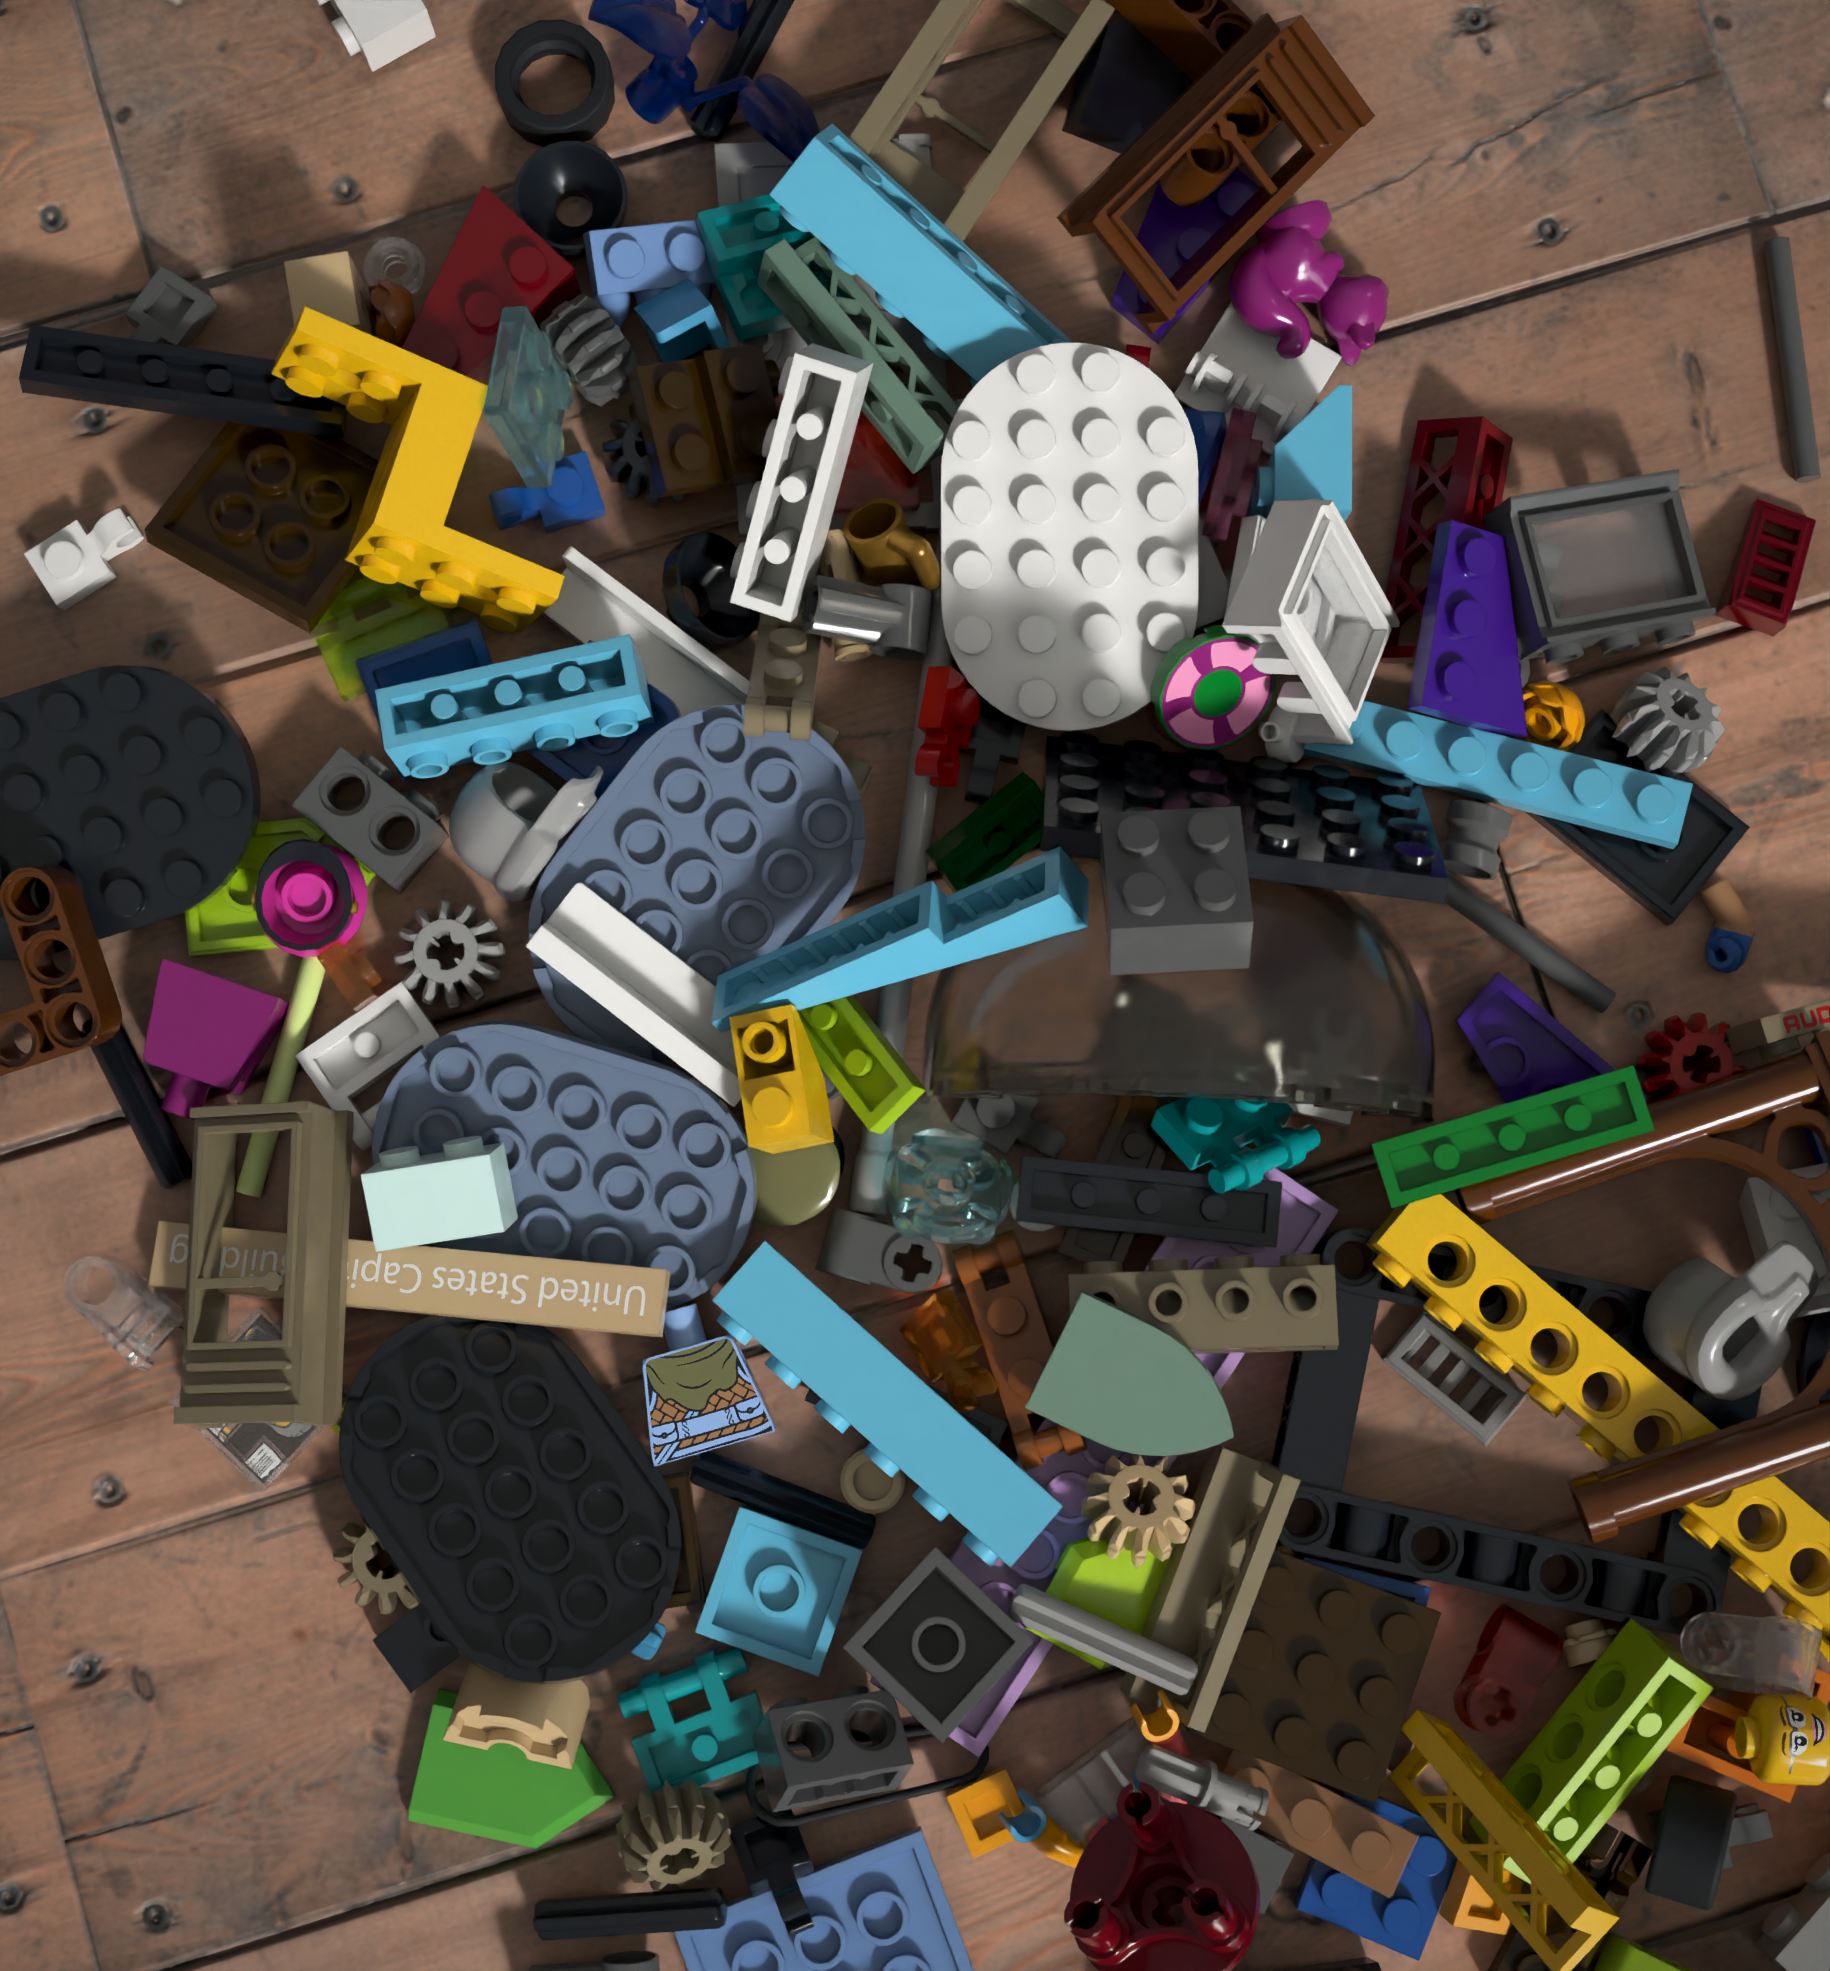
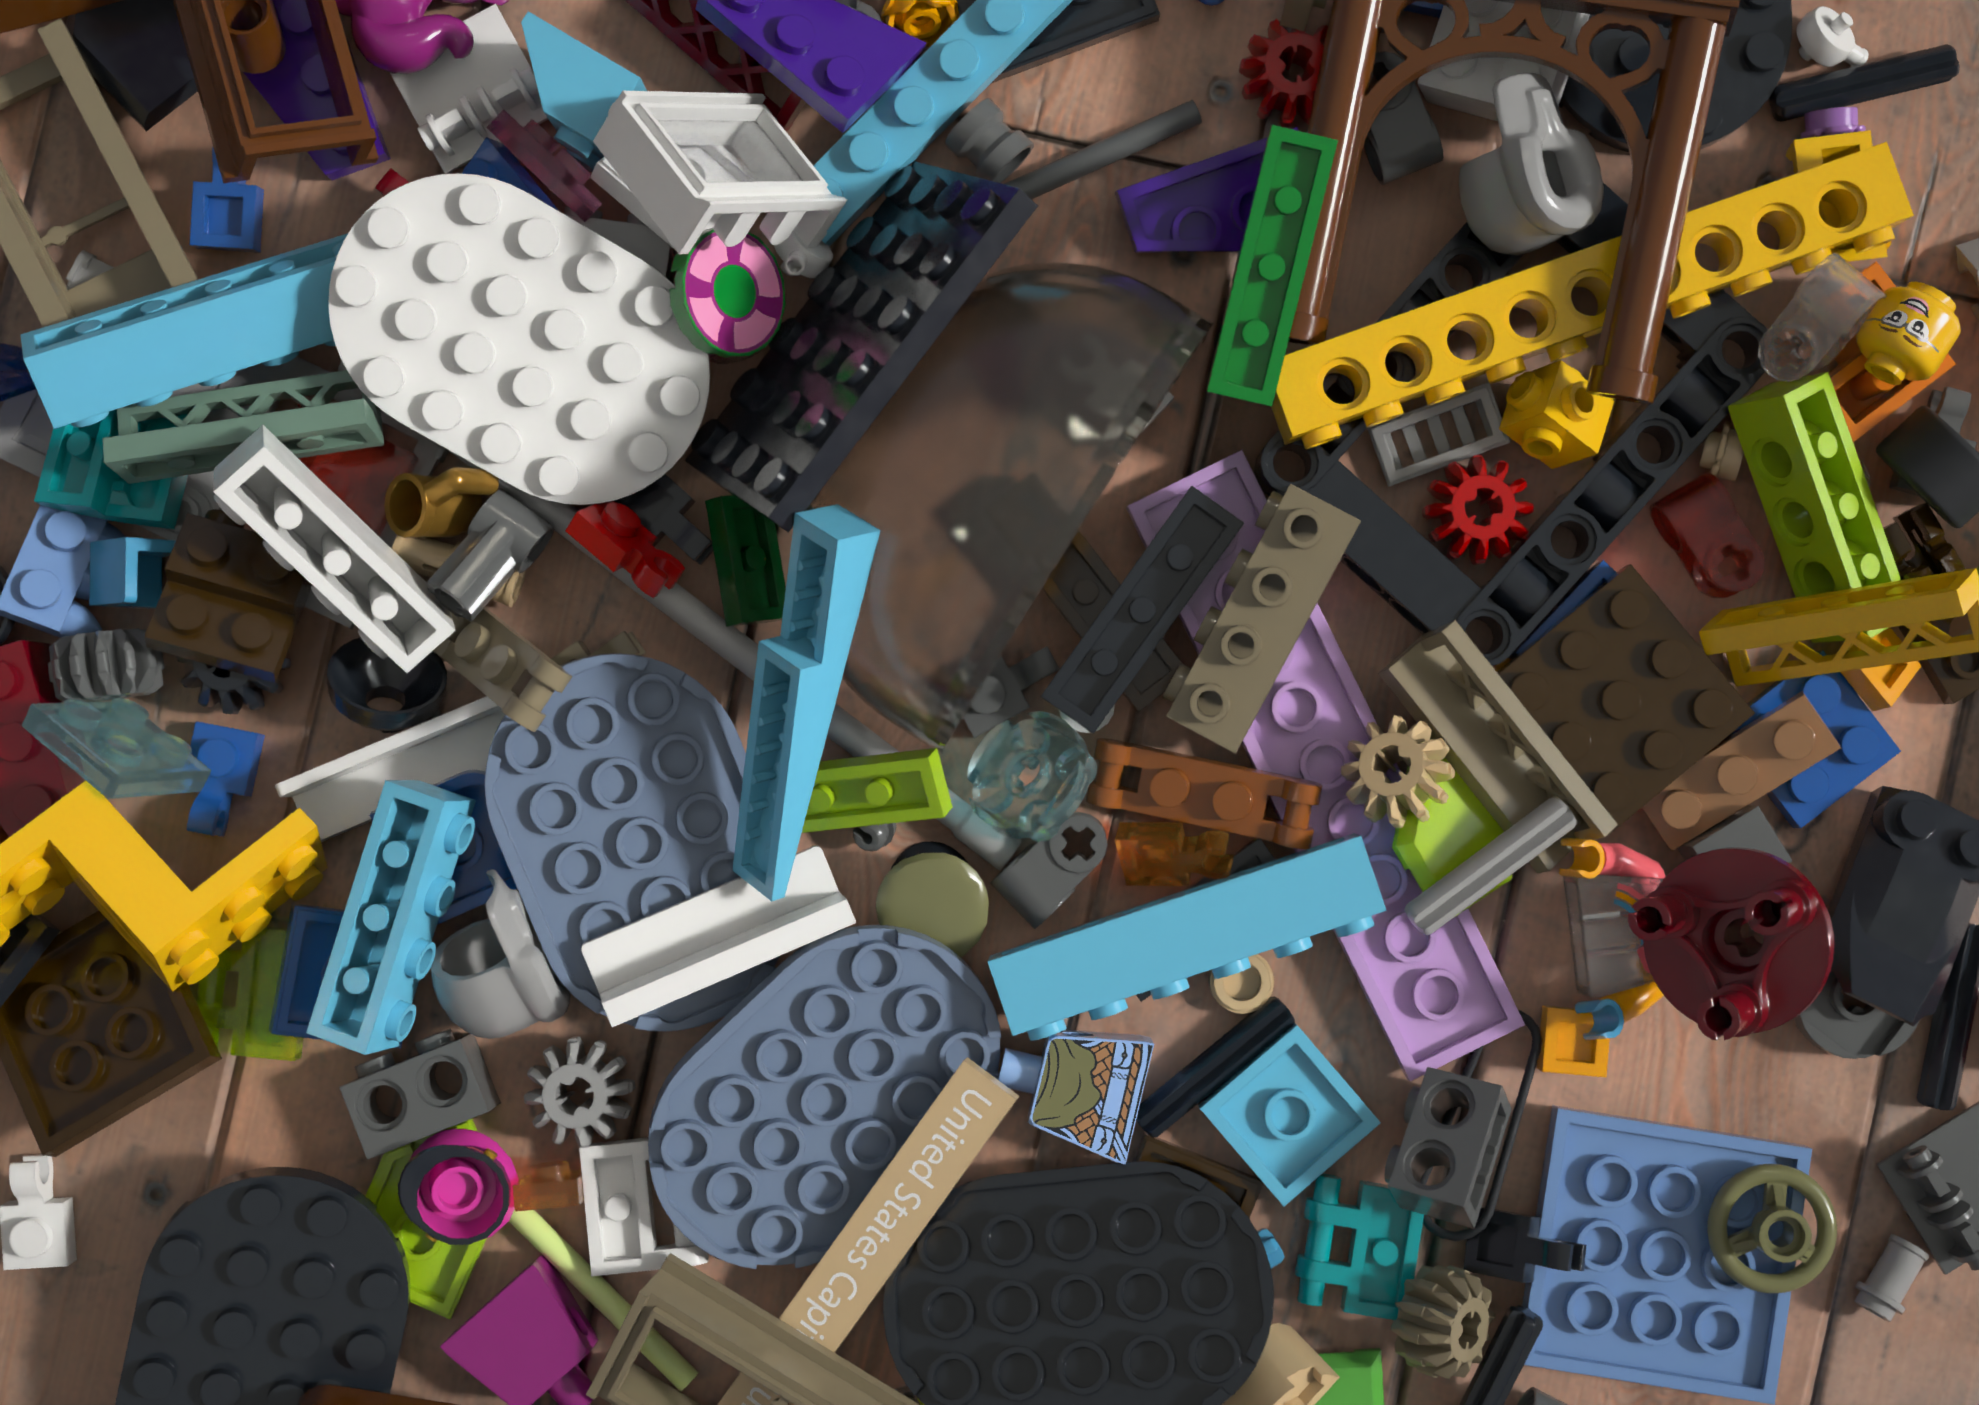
camera: 50 degrees left, 5 degrees up
(439, 1194) = (786, 1221): light aqua brick -> none
(780, 1081) = (857, 871): yellow slope -> none
(938, 1644) = (1417, 1010): dark grey brick -> none
(1030, 235) = (226, 214): none -> blue plate
(1129, 1385) = (1291, 719): sand green shield -> none
(1175, 890) = (894, 435): dark grey brick -> none
(1202, 1786) = (1659, 851): light grey axle -> none
(1217, 1128) = (1118, 518): teal plate -> none
(1399, 1473) = (1491, 531): none -> red gear
(1531, 1469) = (1555, 415): none -> yellow brick
(1698, 1190) = (1403, 133): none -> dark grey piece

